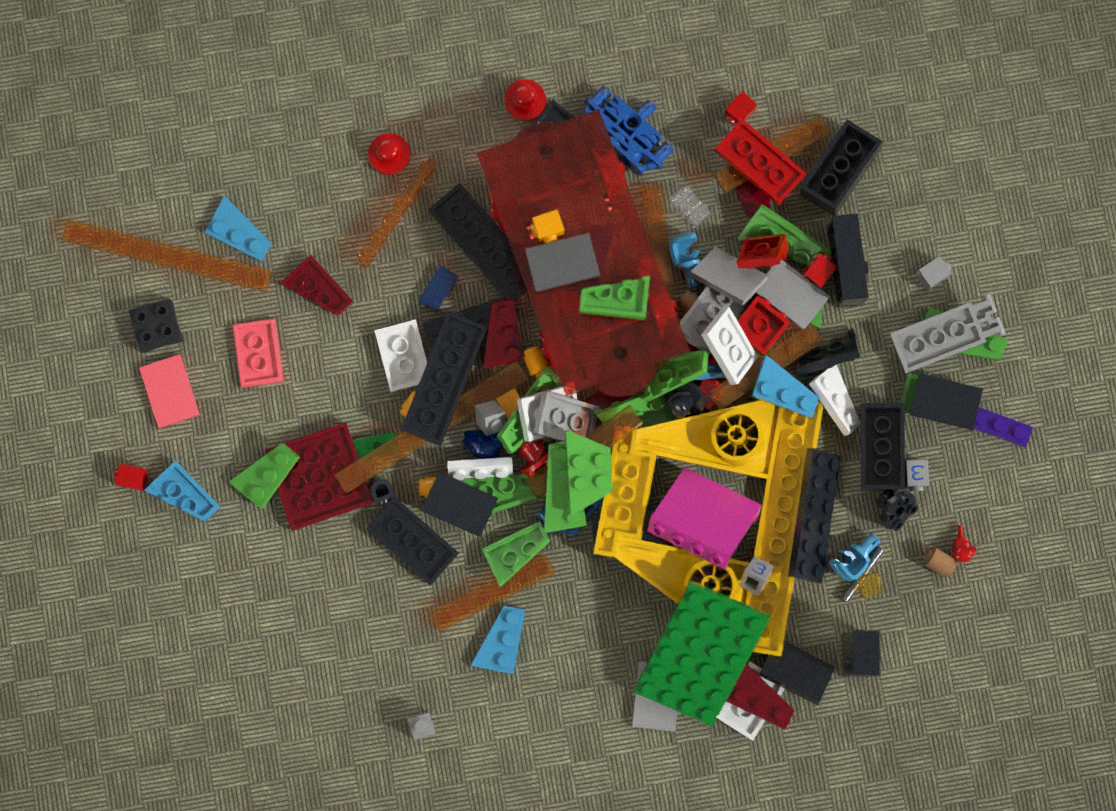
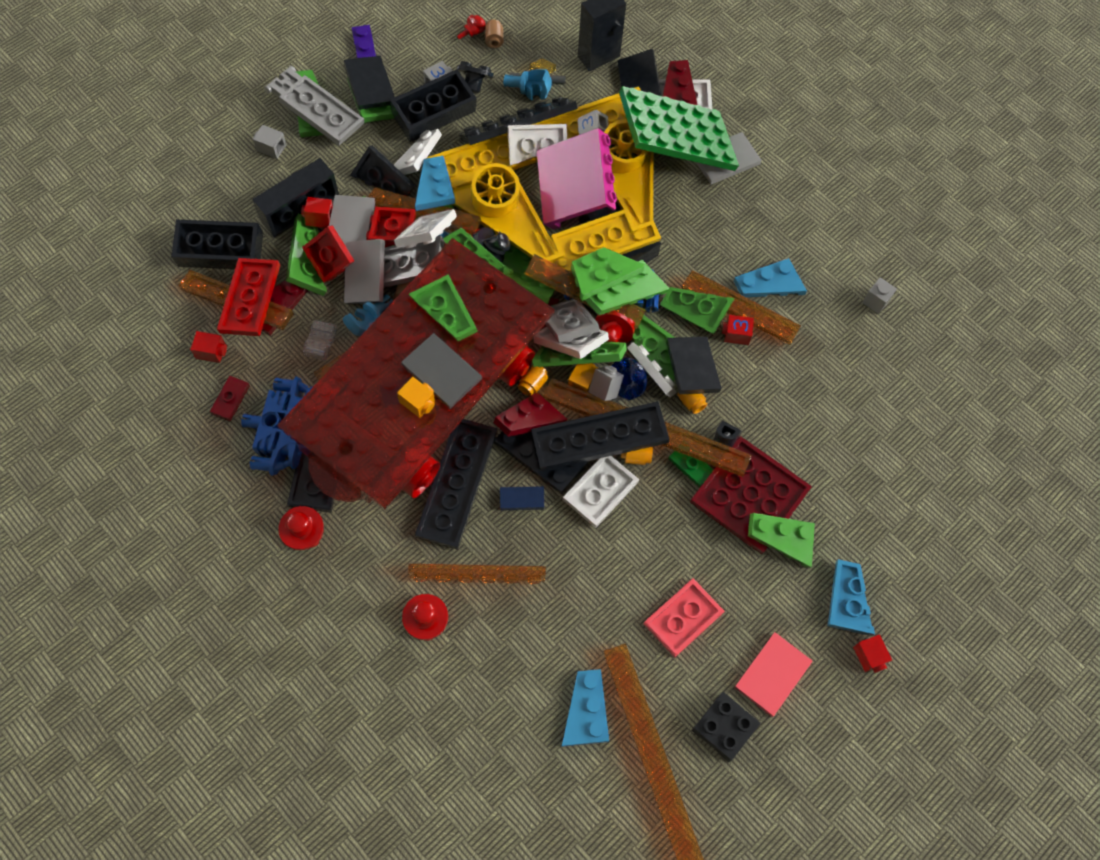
camera: 125 degrees left, 15 degrees down
(318, 286) = (588, 602): dark red wing -> none
(412, 541) = (747, 389): black plate -> none
(471, 572) = (738, 329): none -> red brick
(681, 104) = (229, 398): none -> dark red plate
(778, 510) = (527, 139): none -> white wing

